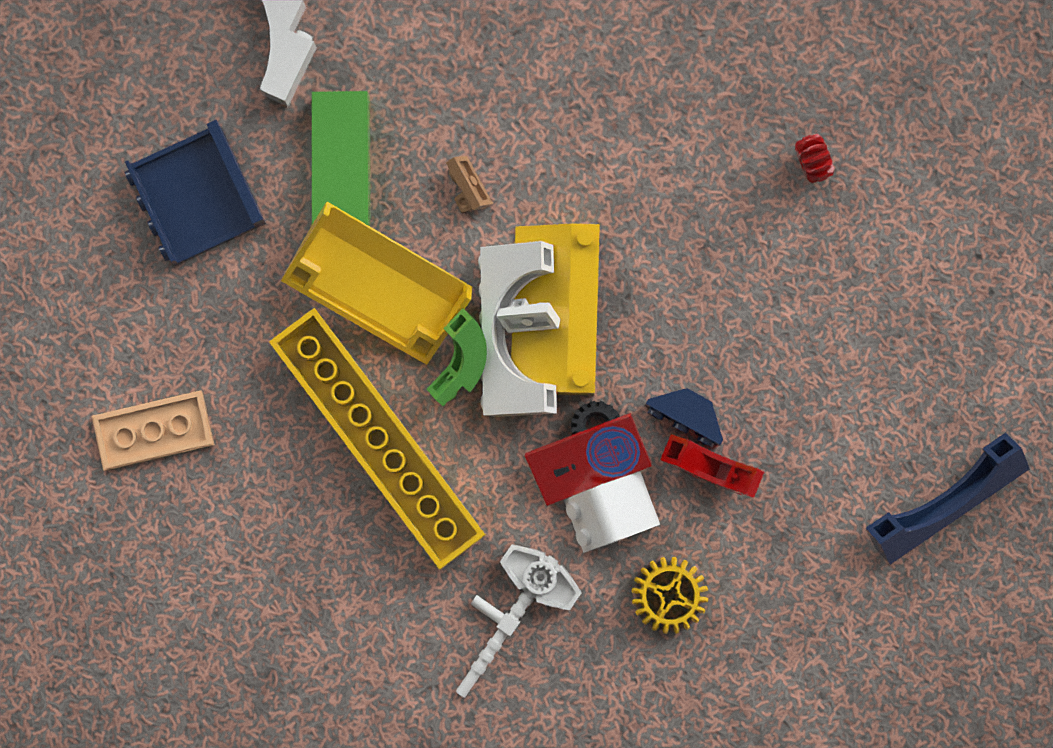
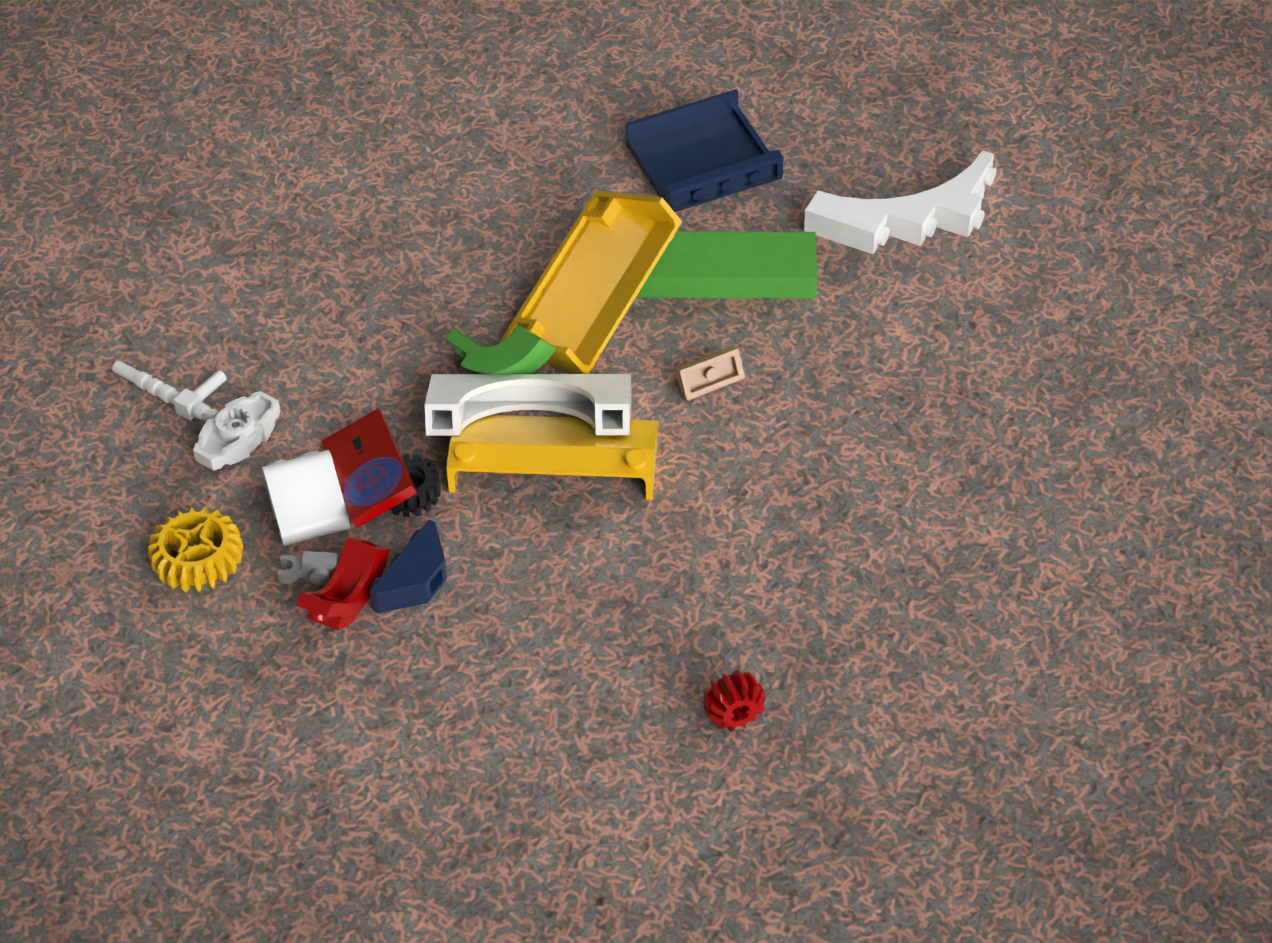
camera: 90 degrees right, 35 degrees down
(152, 430) = (447, 126): light nougat tile -> none
(377, 438) = (411, 289): yellow brick -> none
(522, 316) = (546, 412): white hinge -> none
(688, 490) = (313, 566): none -> light grey plate
(997, 467) = (232, 779): dark blue arch -> none

